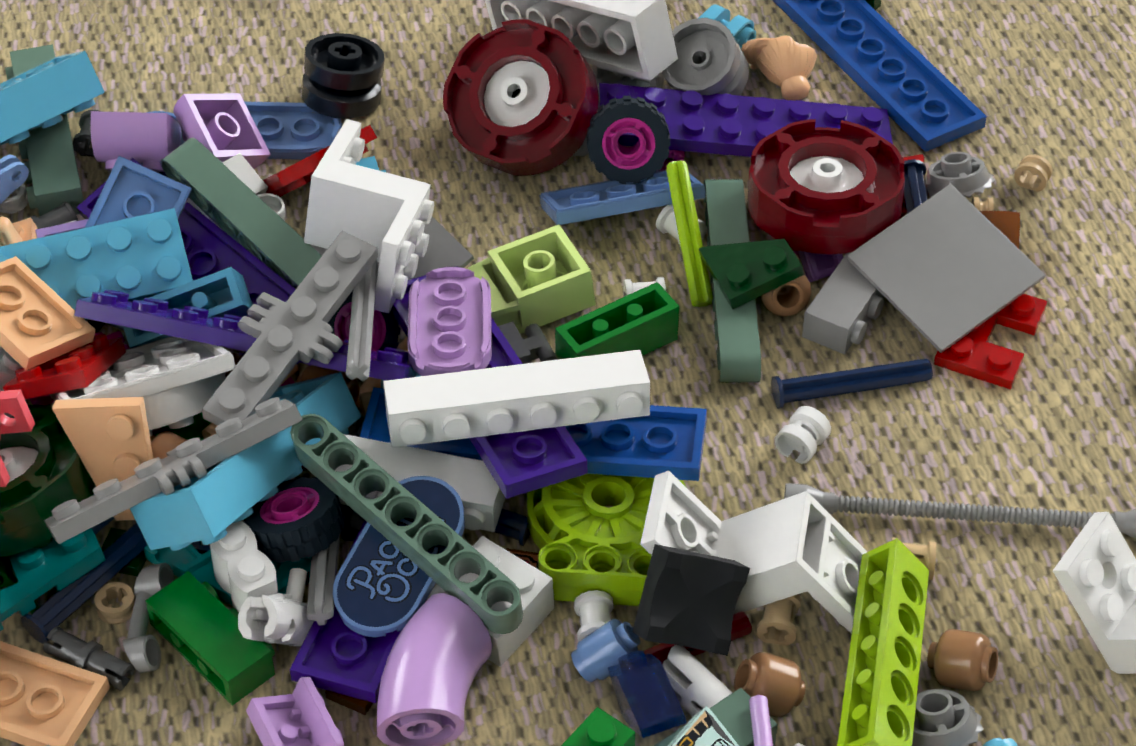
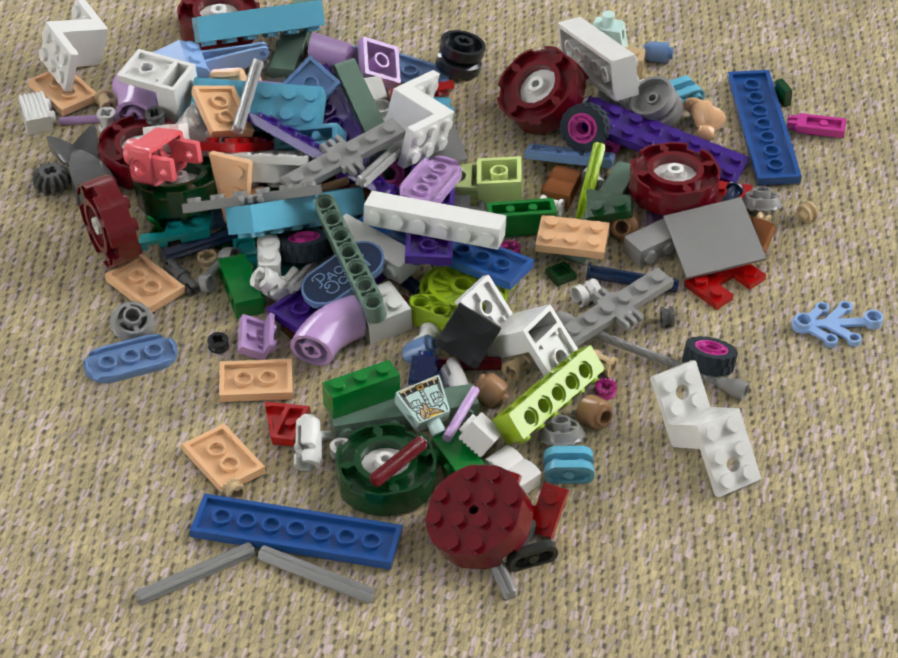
camera: 25 degrees right, 5 degrees down
(55, 272) = (247, 96): none -> light grey axle
(638, 250) = (562, 184): none -> dark orange brick
(727, 342) = (572, 237): none -> light nougat plate
(733, 412) = (560, 274): none -> dark green tile
(876, 443) = (618, 307): none -> light grey hinge
(939, 594) = (607, 384): none -> dark pink bush
(947, 25) = (817, 125): none -> dark pink hinge
(954, 431) = (667, 316): none -> dark grey bush
(1074, 482) = (711, 355): none -> black wheel

